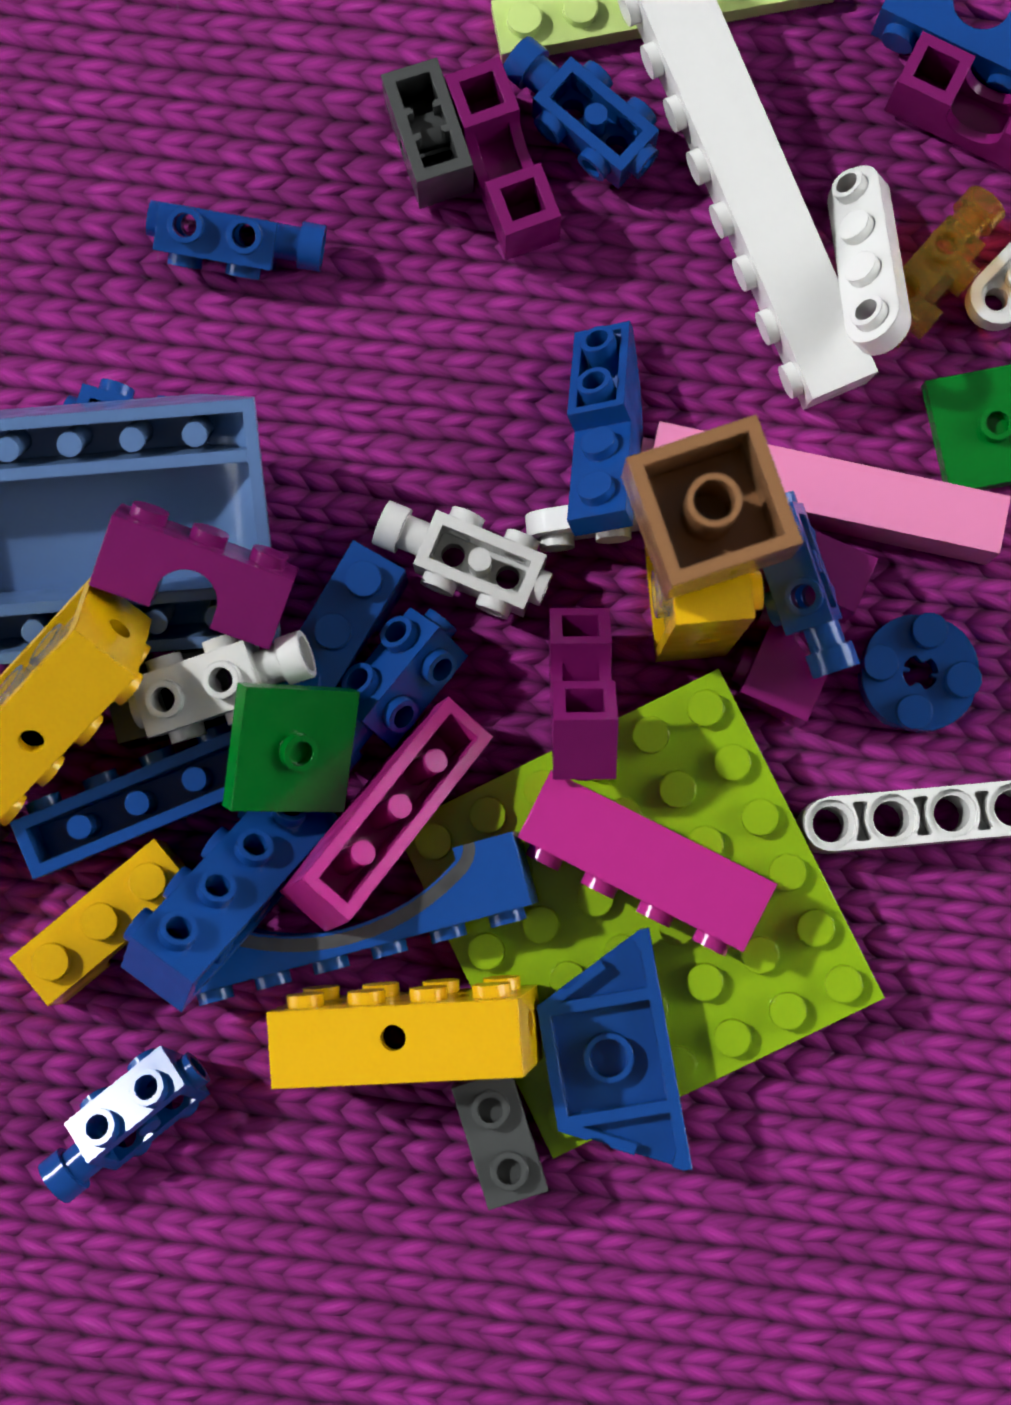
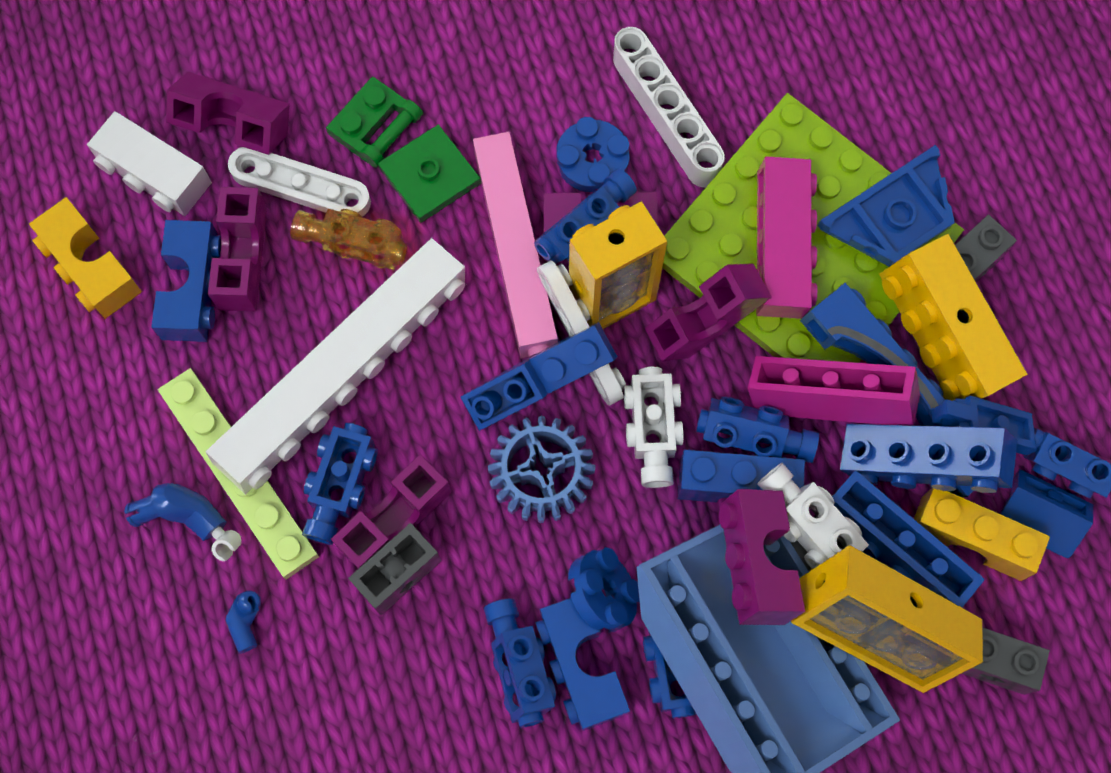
camera: 115 degrees left, 10 degrees down
(93, 1038) = (1049, 512): none -> blue panel
(150, 310) = (591, 698): none -> blue arch
(236, 1006) = (987, 414): none -> blue hinge
(290, 748) = (830, 456): green plate -> none
(296, 359) = (603, 571): none -> blue plate
(457, 378) = (558, 462): none -> medium blue gear
(711, 507) = (599, 237): medium nougat brick -> none
(868, 261) = (366, 269): white plate -> none

